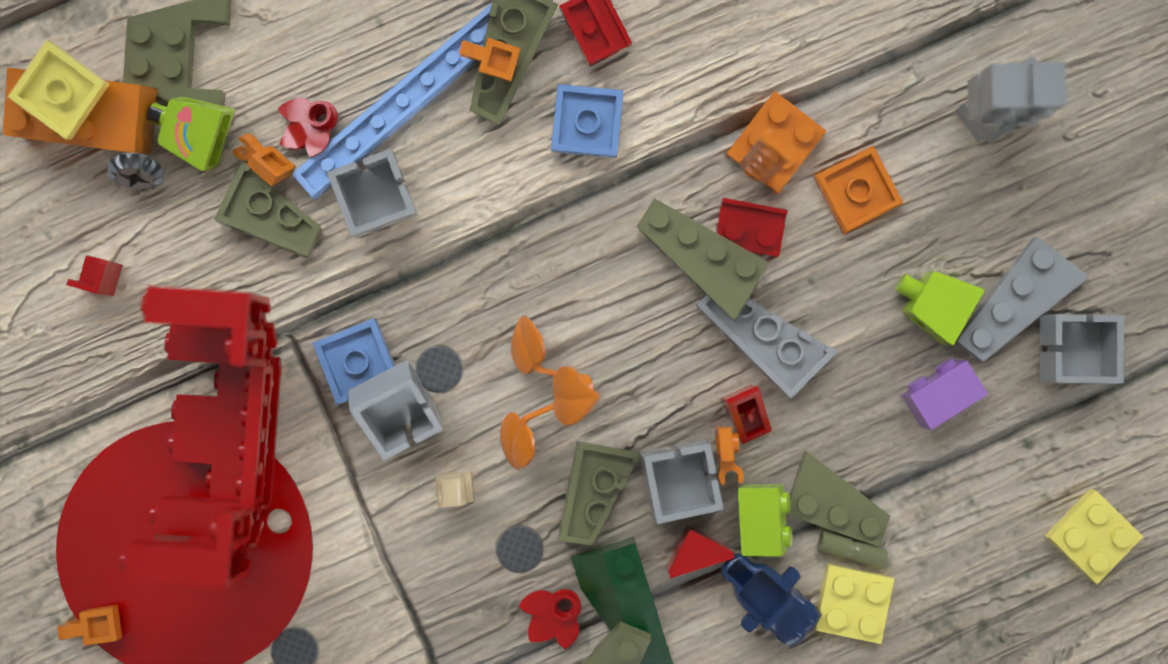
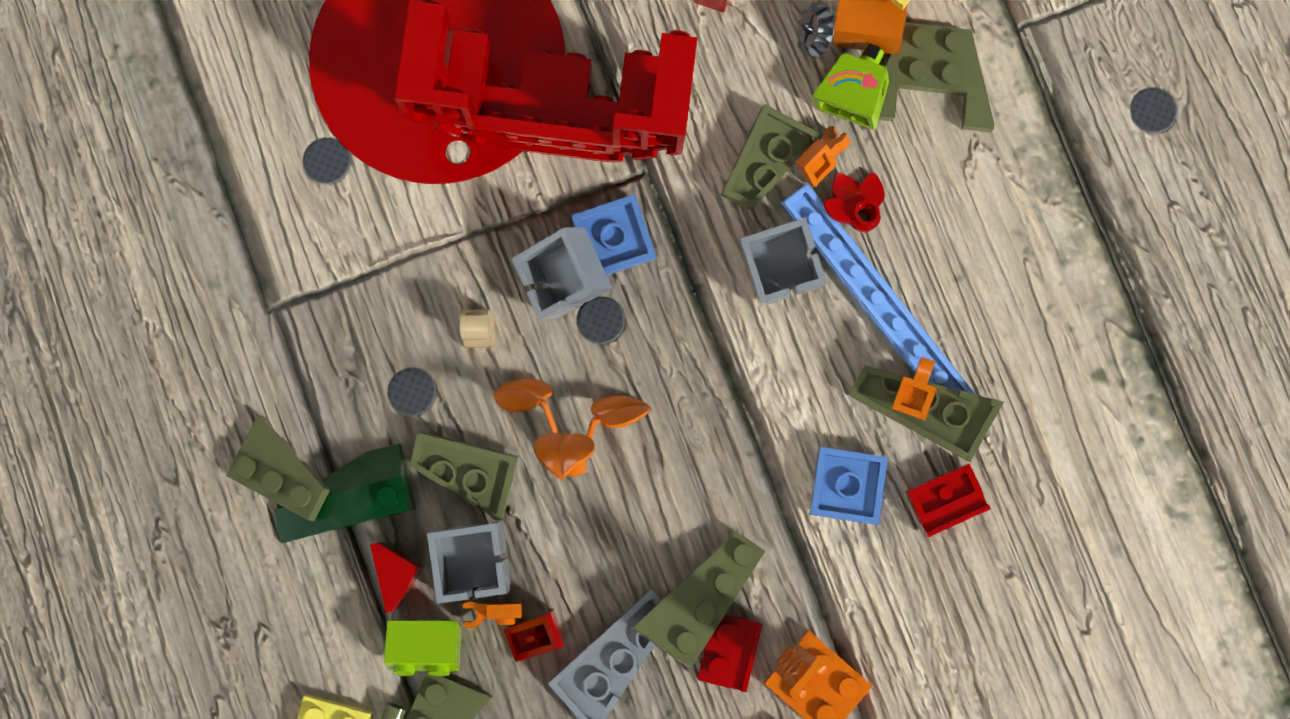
camera: 90 degrees right, 5 degrees down
(549, 619) = (337, 418): red plate -> none
(771, 599) = (339, 649): dark blue piece -> none

